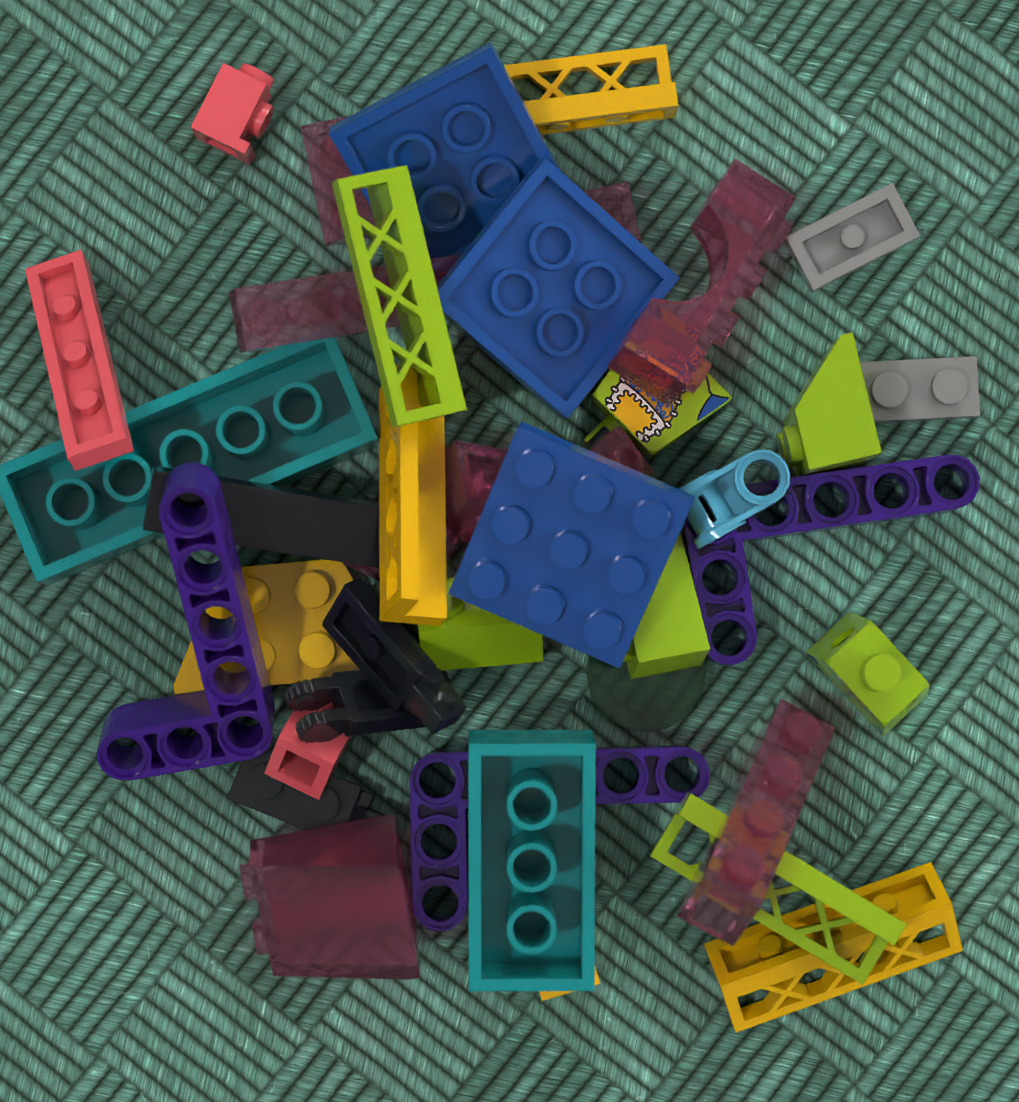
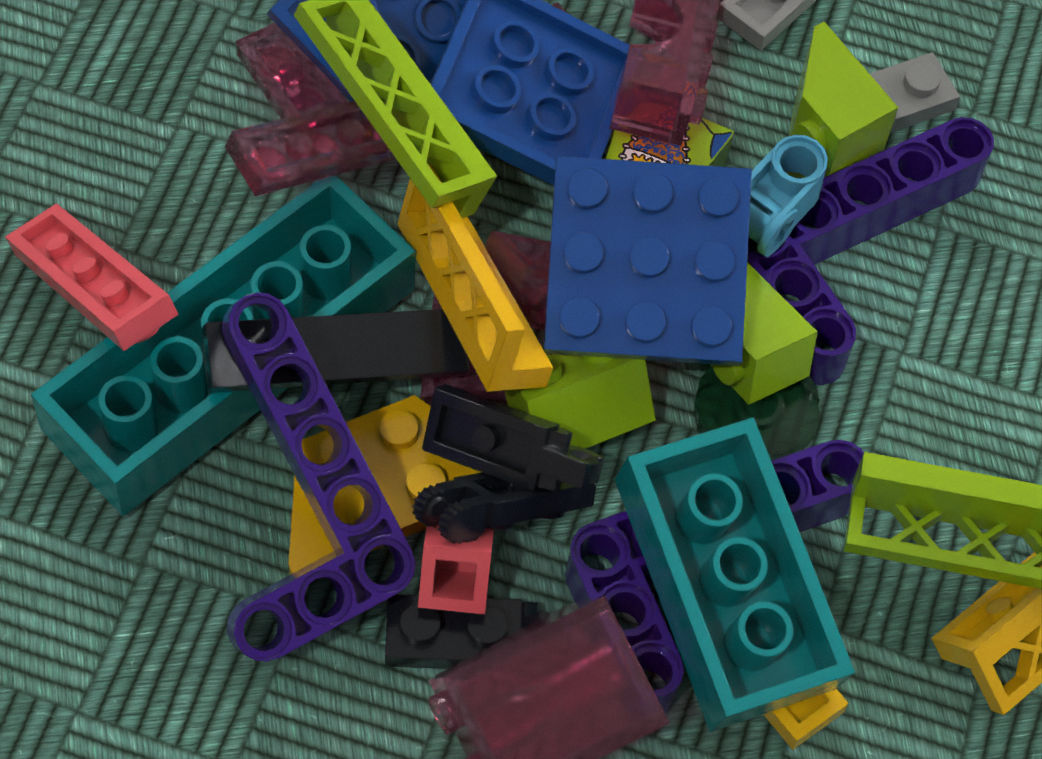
camera: 25 degrees left, 25 degrees down
(235, 111) = (168, 51): coral brick -> none
(758, 824) = (947, 466): clear pink arch -> none
(869, 671) = (974, 326): lime torso -> none

